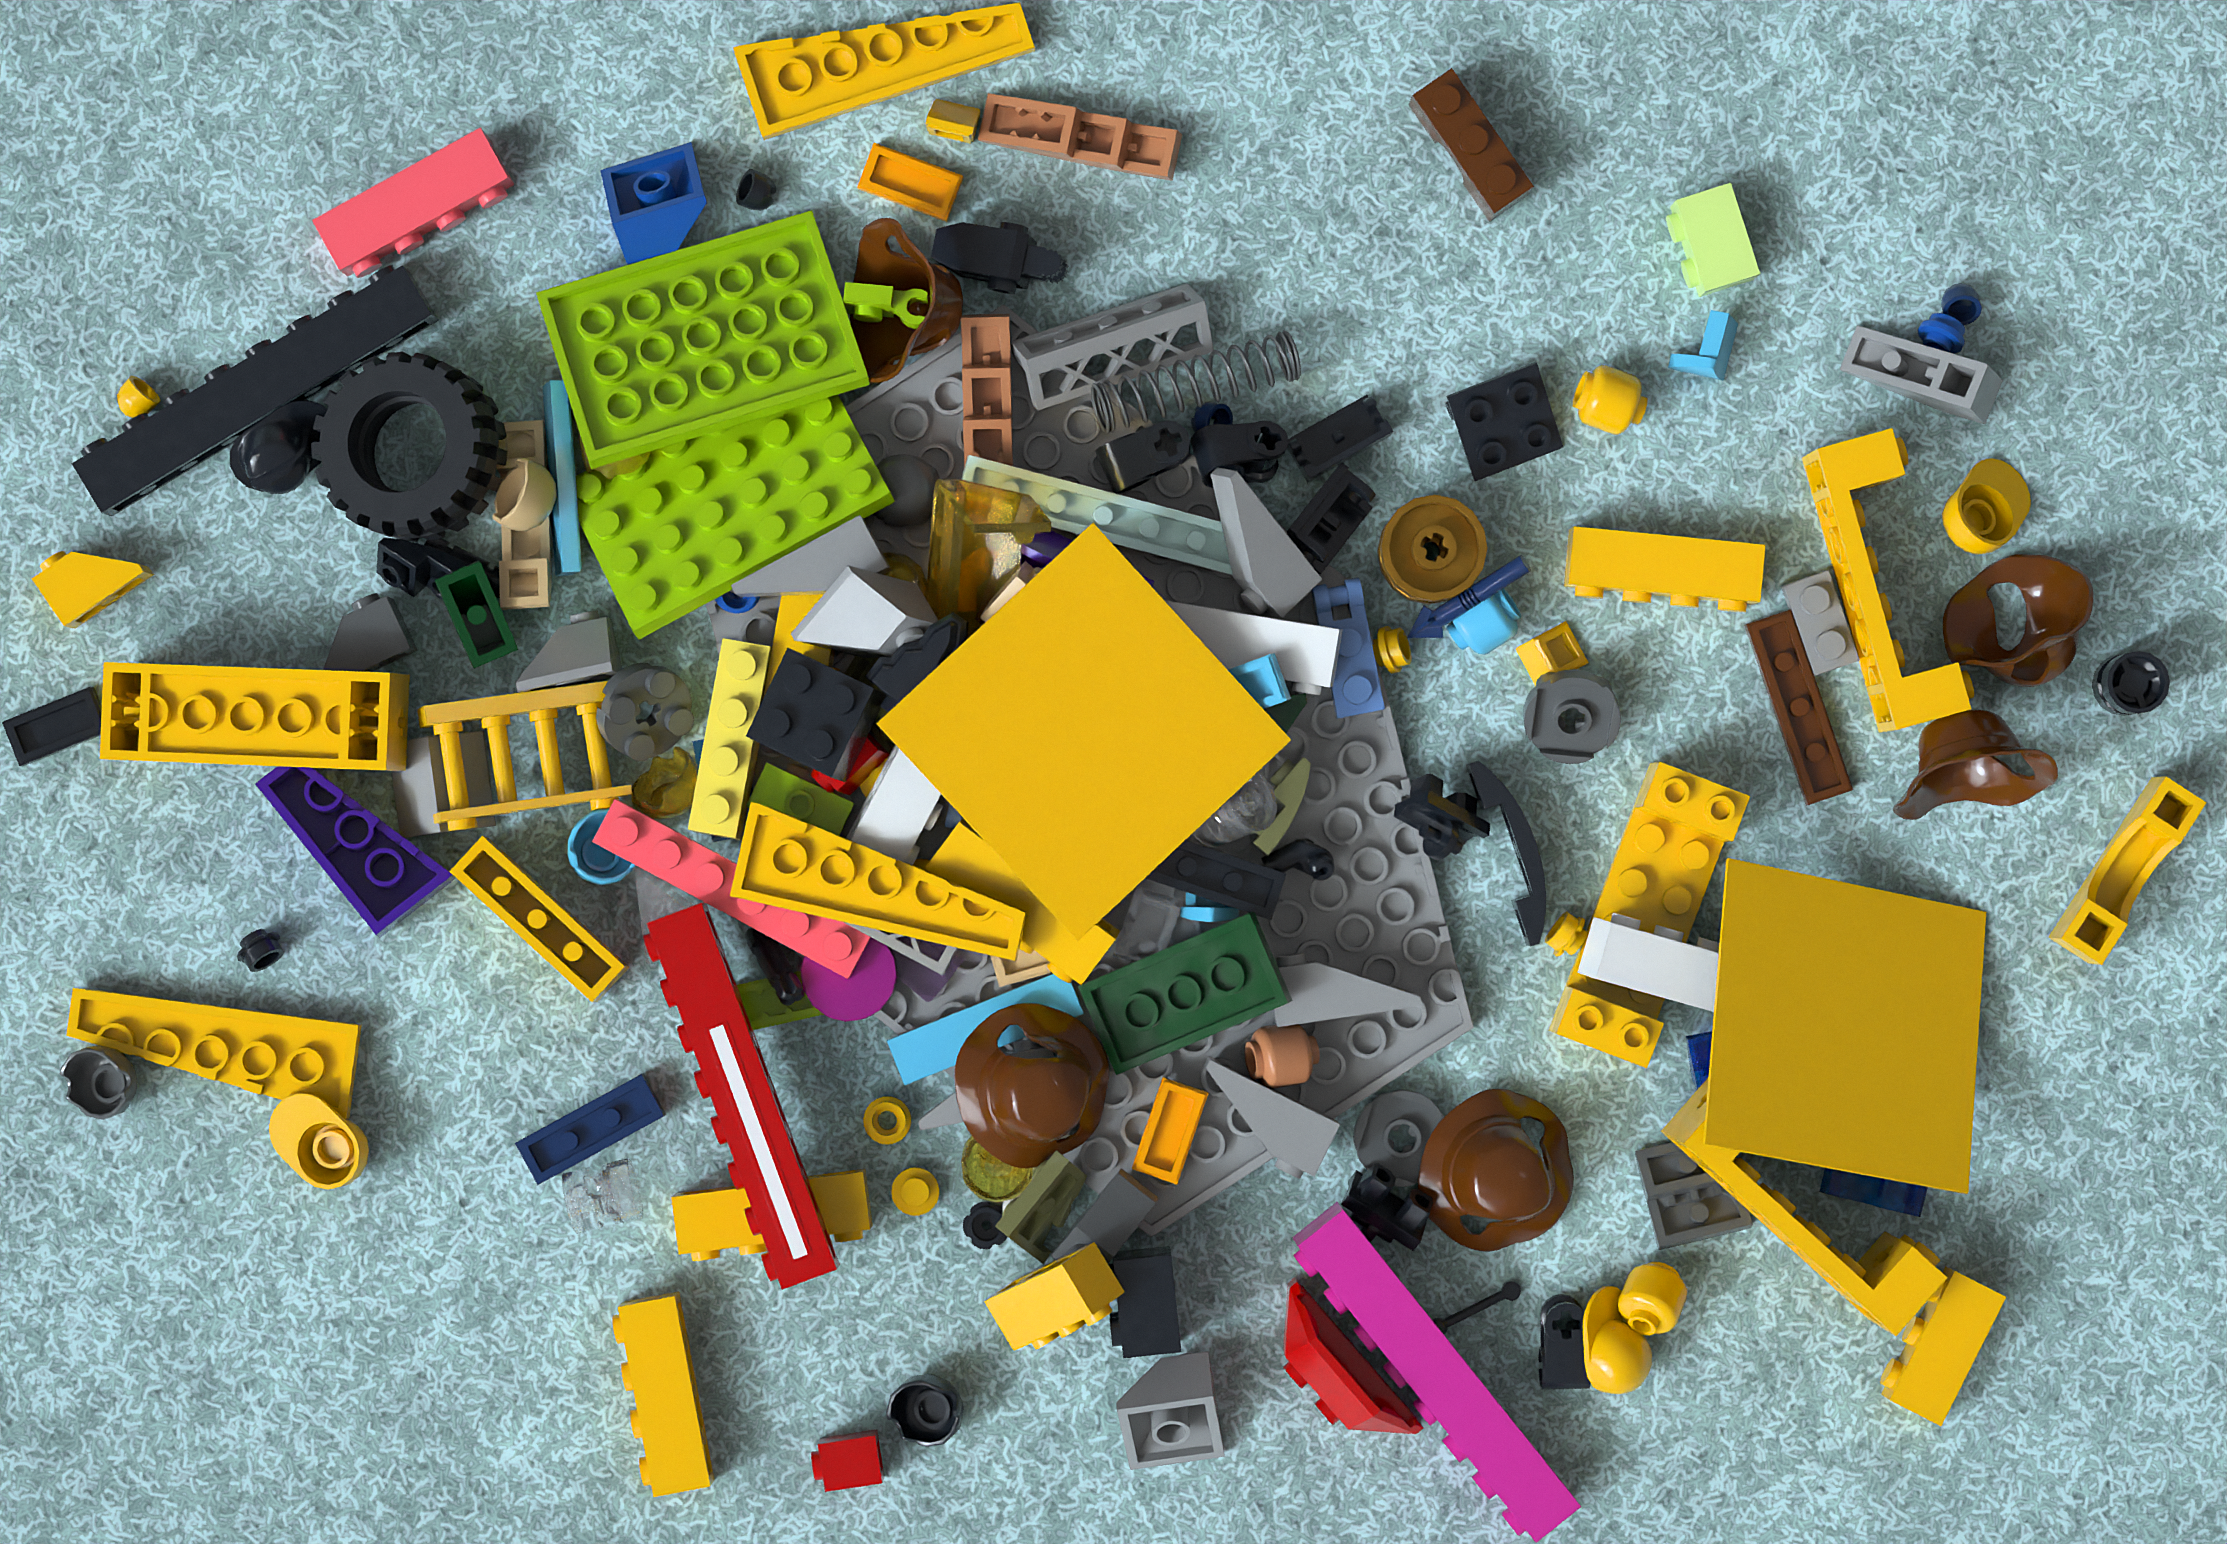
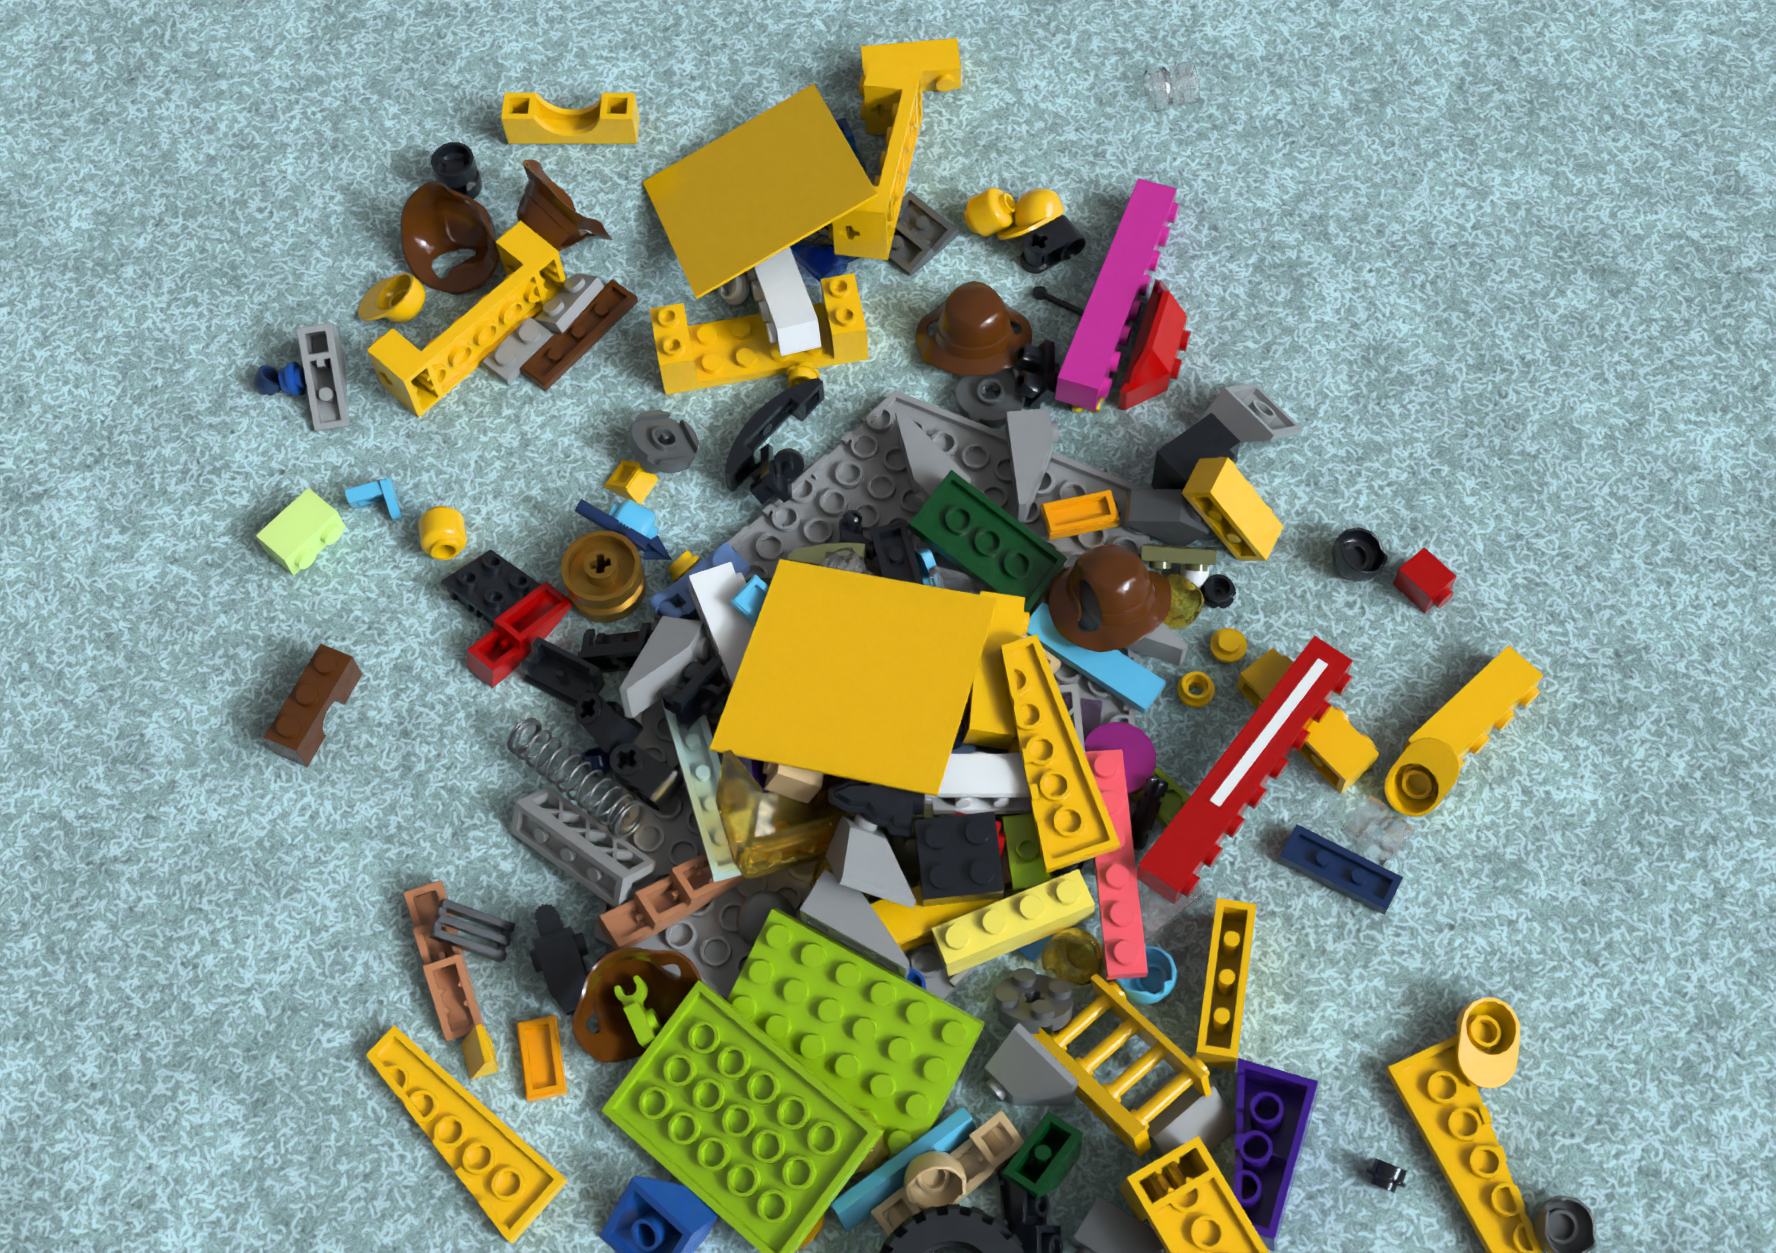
camera: 115 degrees left, 25 degrees down
(623, 1279) = (1422, 777): none -> yellow cap
(754, 191) = (601, 1167): black hinge -> none
(1065, 206) = (502, 939): none -> black tile
(1188, 566) = (703, 693): none -> black hips
(1281, 1055) = (989, 472): nougat head -> none
(1425, 418) = (515, 631): none -> red slope
(1664, 566) = (534, 446): yellow brick -> none
(1848, 718) = (569, 302): none -> light grey plate

